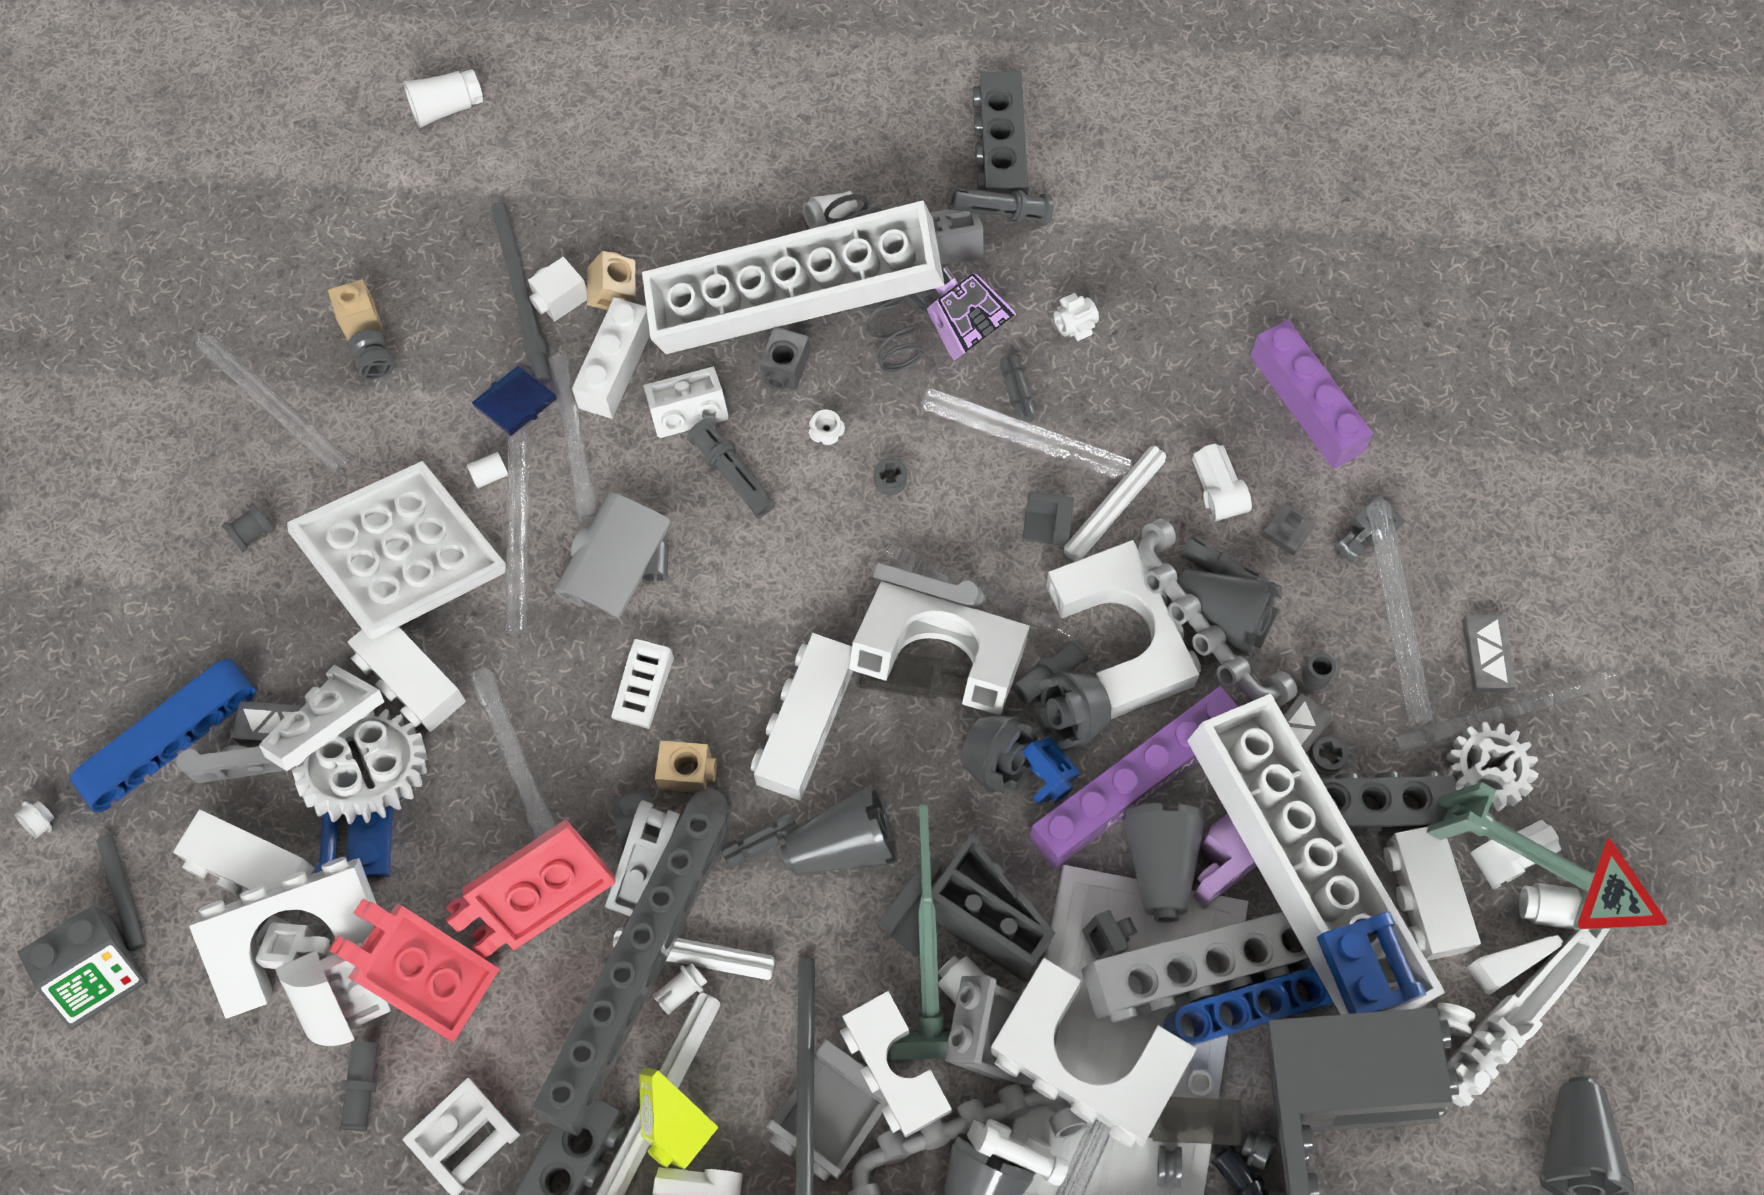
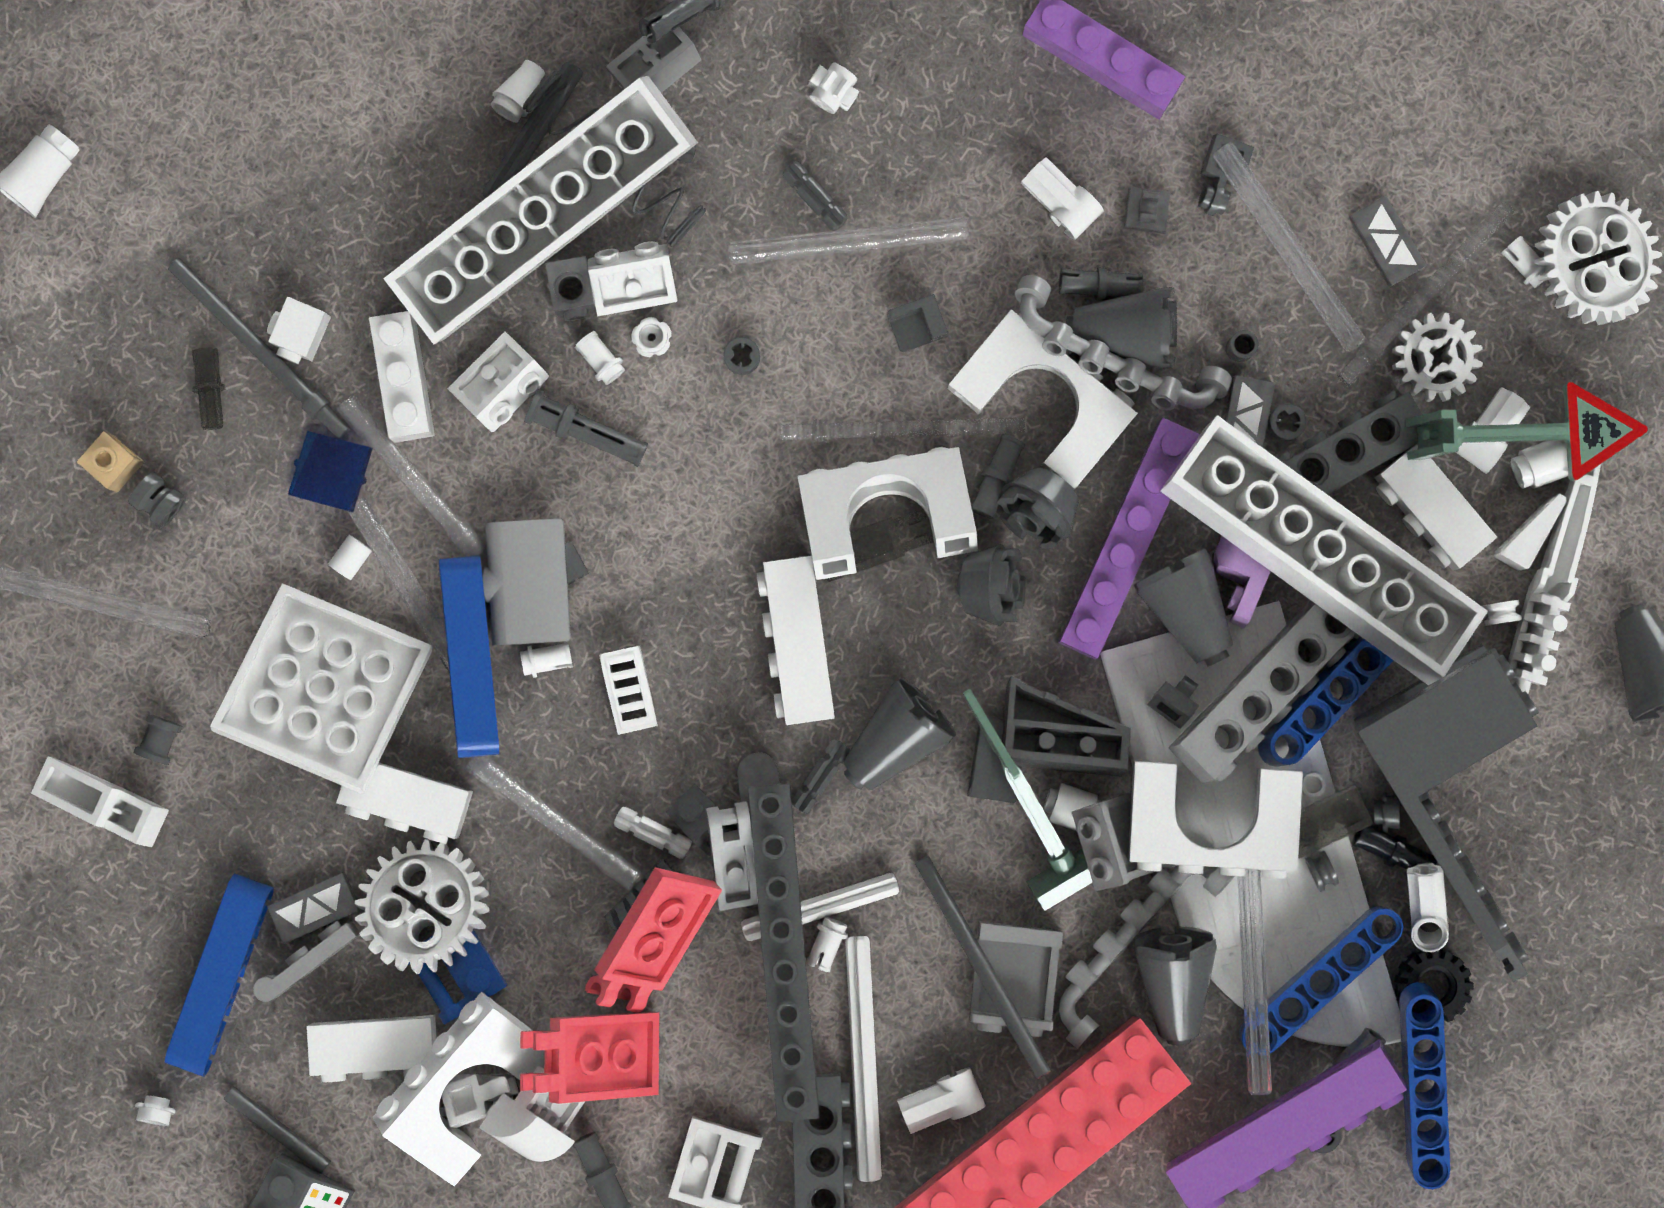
camera: 30 degrees left, 20 degrees up
(171, 552) = (100, 802): none -> white slope
(324, 716) = (363, 880): white wing -> none
(464, 298) = (208, 387): none -> clear smoke axle
(526, 586) = (469, 656): none -> blue beam
(590, 624) = (545, 659): none -> white pin
(590, 812) = (652, 832): none -> white axle
(610, 277) = (346, 309): tan brick -> none
(671, 1121) = (888, 1061): neon yellow slope -> none
(674, 754) = (698, 751): tan brick -> none
(777, 428) = (600, 358): none -> white pin
(835, 378) = (631, 278): none -> white bracket
(910, 1101) = (1084, 939): white arch -> none
(931, 584) = (845, 453): light grey plate -> none
(966, 312) = (727, 144): torso -> none
(1032, 1154) = (1204, 927): white plate -> none
(1054, 767) = (1047, 571): blue bracket -> none
(1114, 503) = (971, 270): white axle -> none
(1358, 969) = (1408, 636): blue plate -> none
(1610, 729) = (1523, 258): none -> white pin
(1668, 778) = (1586, 222): none -> white gear

